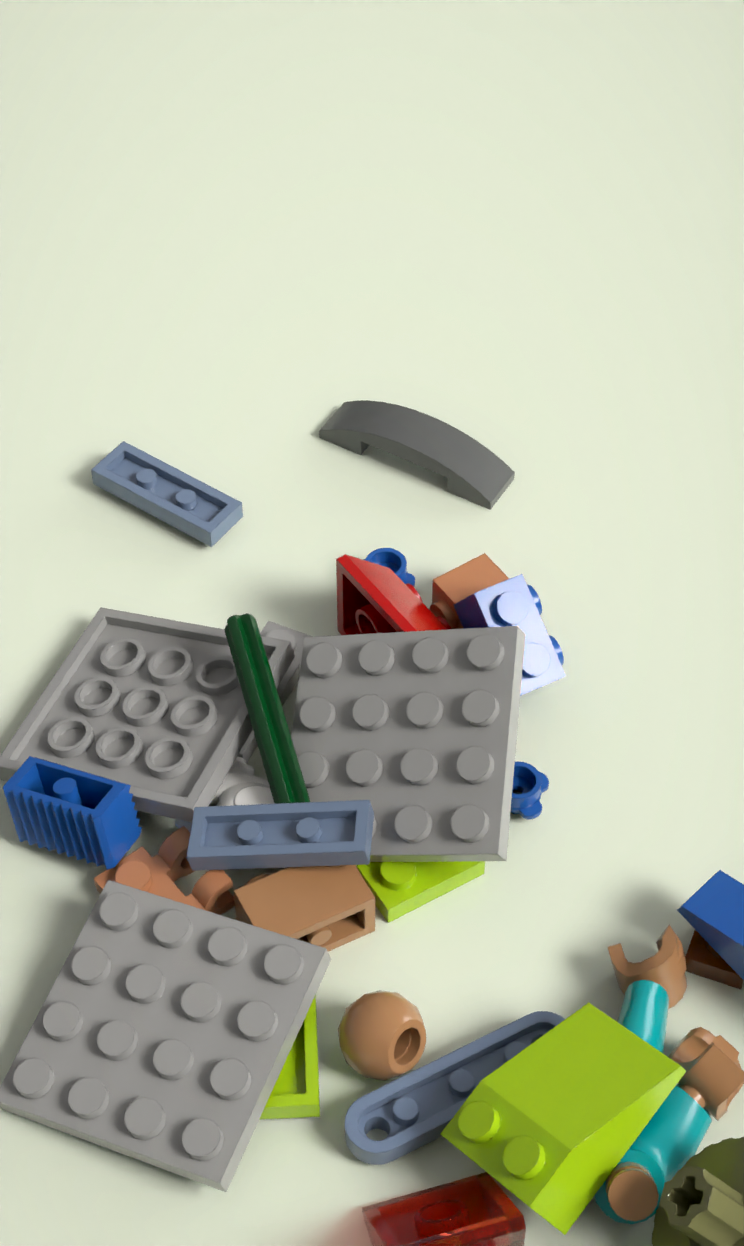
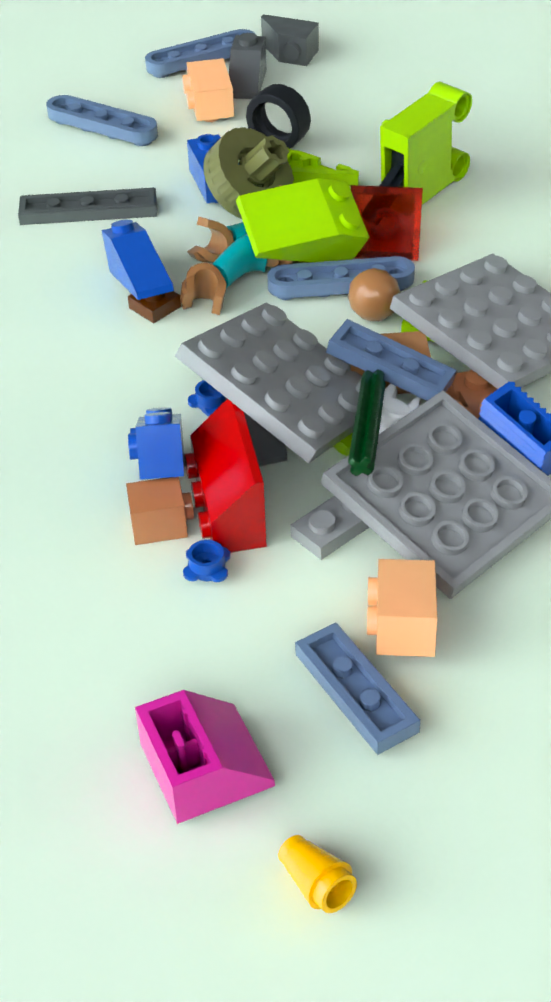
camera: 155 degrees left, 5 degrees down
(136, 348) = (318, 874): none -> yellow cone
(144, 560) = (403, 607): none -> light nougat brick
(276, 384) = (200, 753): none -> dark pink slope
(426, 441) = (105, 661): dark grey slope -> none

